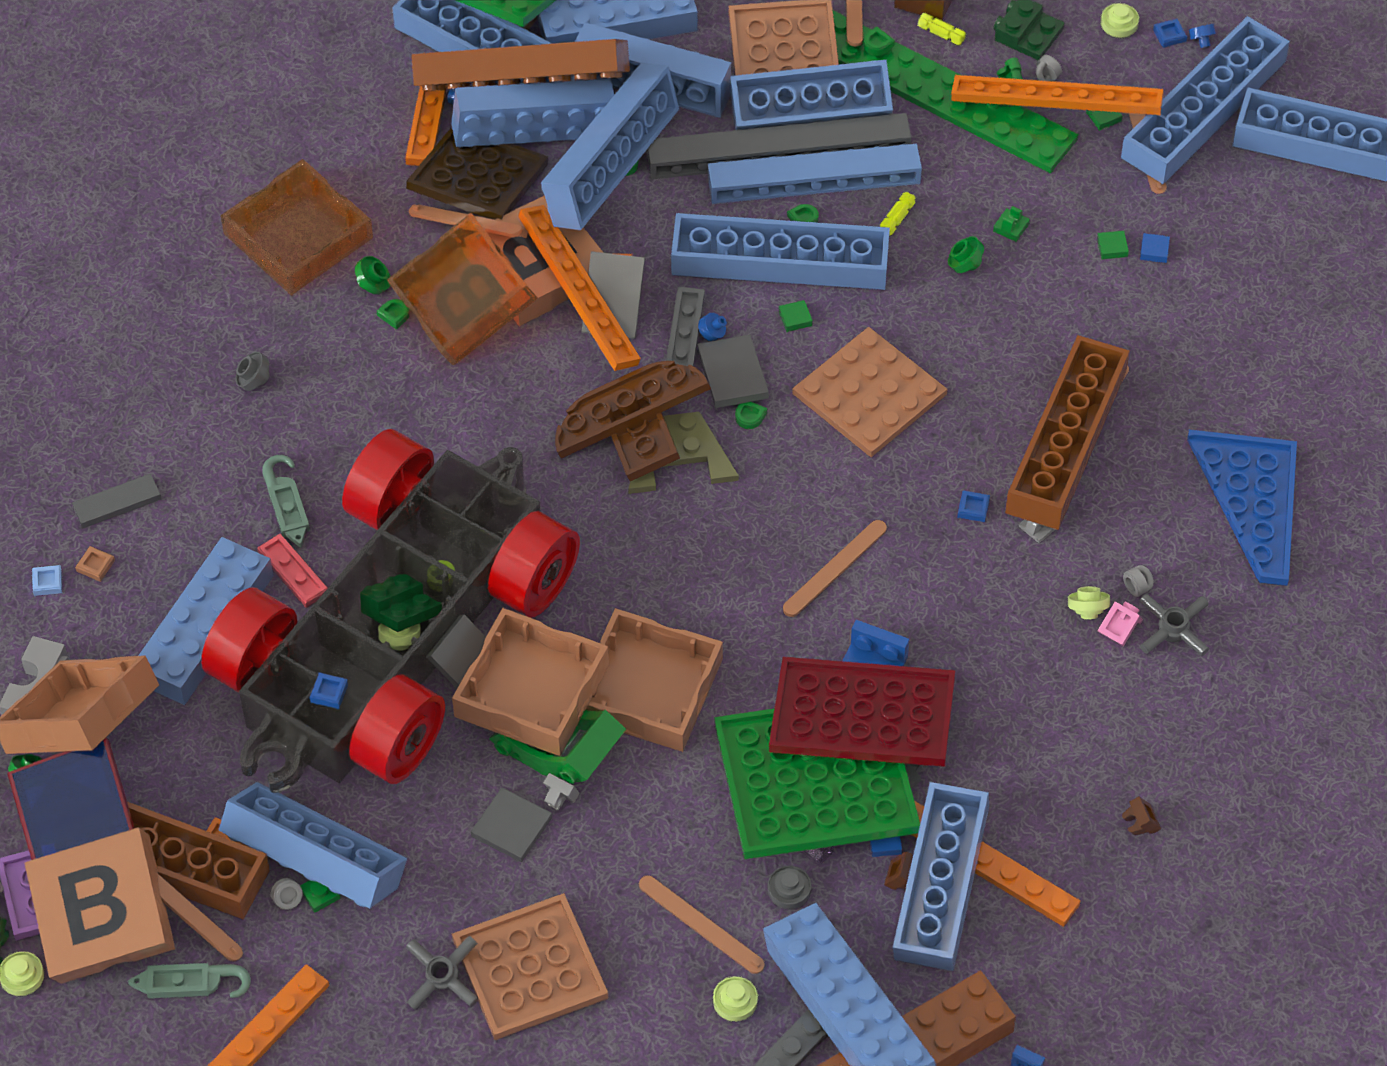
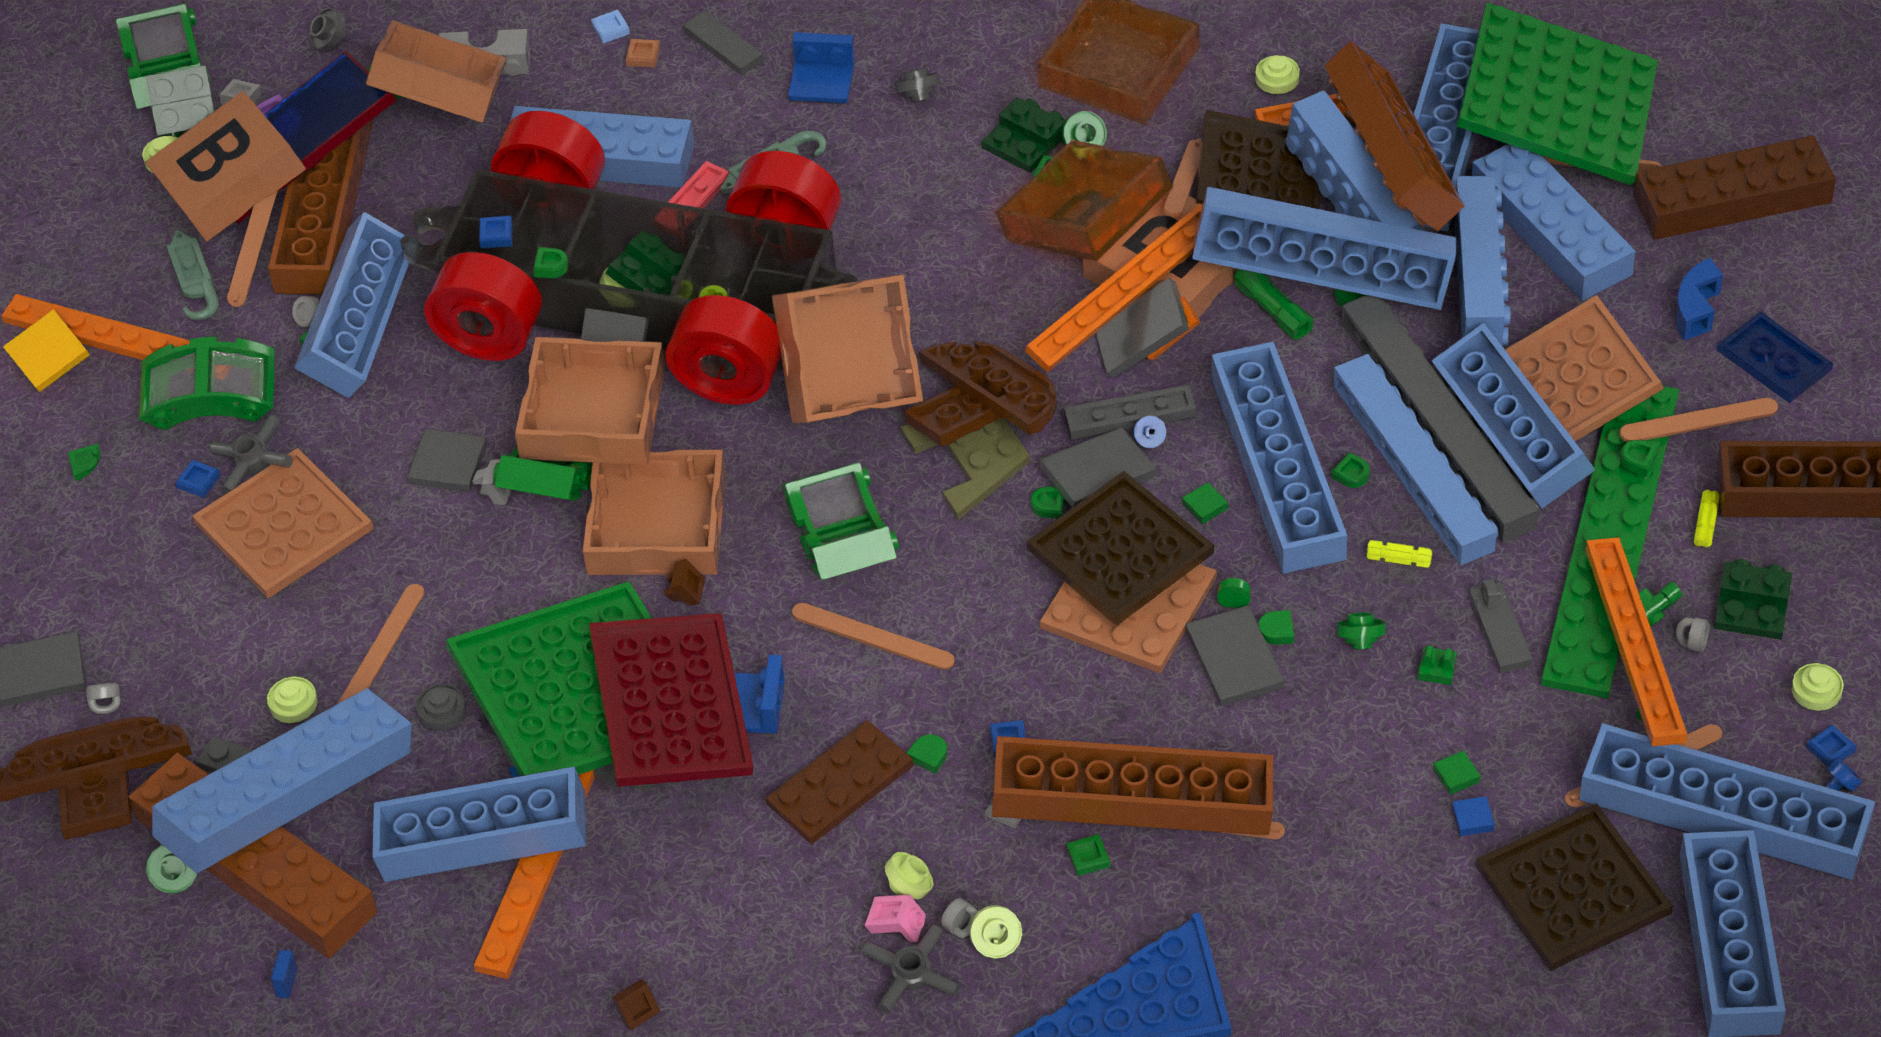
camera: 75 degrees right, 5 degrees down
(197, 435) = (822, 67): none -> blue bracket
(343, 990) = (207, 381): none -> green window
(347, 316) = (1024, 134): none -> dark green plate
(371, 133) = (1277, 74): none -> yellowish green plate
(388, 657) = (550, 263): none -> green tile
(442, 1027) = (198, 478): none -> blue tile
(569, 480) = (847, 348): none -> nougat tile
(631, 205) = (1289, 316): none -> green axle
(720, 553) = (839, 521): none -> green window
(738, 681) = (685, 583): none -> reddish brown tile
(832, 373) = (1120, 547): none -> dark brown plate
(896, 322) = (1234, 593): none -> green tile
(936, 308) = (1277, 627): none -> green tile
(952, 342) = (1234, 655): none -> dark grey tile
(968, 560) = (929, 752): none -> green tile
(973, 627) = (839, 782): none -> reddish brown plate
(990, 177) = (1500, 626): none -> dark grey hinge
(1103, 487) = (1088, 855): none -> green tile
(1161, 560) = (995, 931): none -> yellowish green plate
(1239, 210) = (1574, 886): none -> dark brown plate

